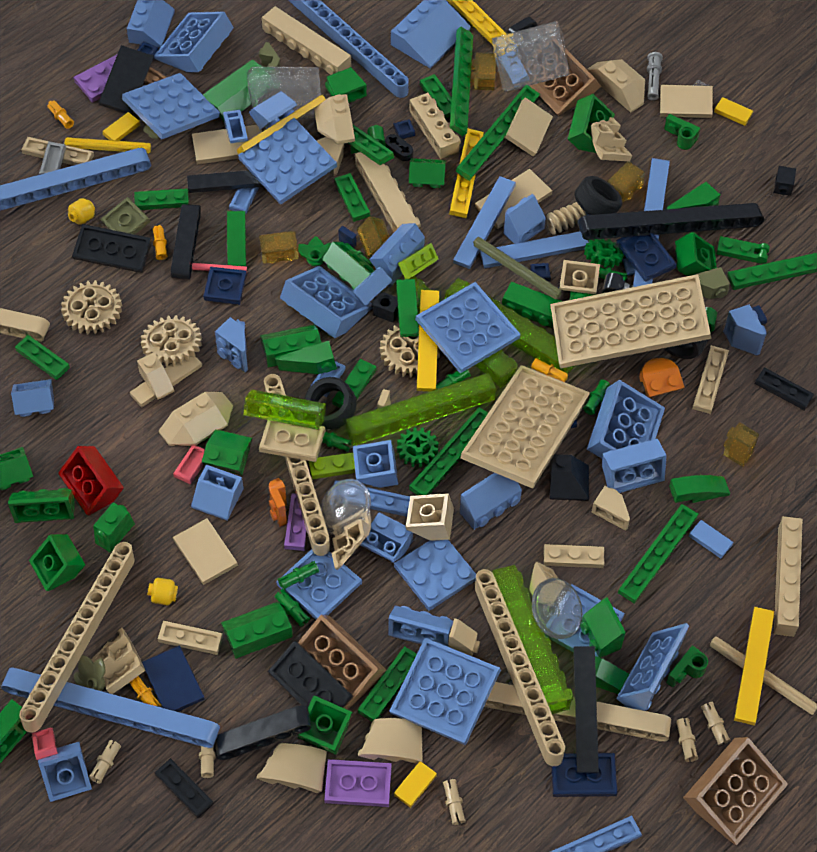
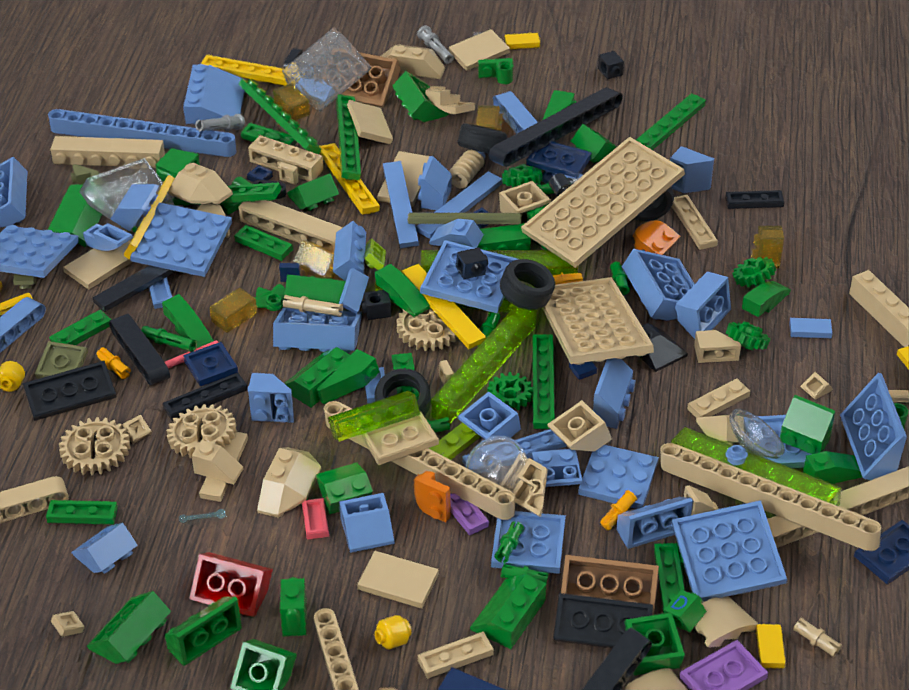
camera: 35 degrees left, 15 degrees down
(130, 310) = (137, 429): none -> tan tile
(133, 417) = (220, 514): none -> clear light blue hinge
(200, 310) = (205, 395): none -> black tile
(210, 240) = (162, 336): none -> green pin
(329, 274) = (304, 304): none -> tan pin
(368, 716) = (686, 610): none -> green brick
(405, 600) = (620, 507): none -> light orange axle
(414, 64) = (226, 123): none -> light grey pin
(424, 141) = (288, 173): none -> tan tile
(471, 318) = (471, 263): none -> black brick
(497, 282) = (458, 231): none -> medium blue slope
(508, 349) = (521, 294): none -> black tyre
(522, 620) = (736, 455): none -> medium blue plate
(585, 709) = (853, 493): black tile -> none
(645, 515) = (748, 335): none -> green gear
(658, 553) = (782, 357): green plate -> none
(663, 594) = (816, 386): none -> tan slope
(709, 459) = (754, 271): none -> green gear
(743, 250) = (626, 125): green plate -> none

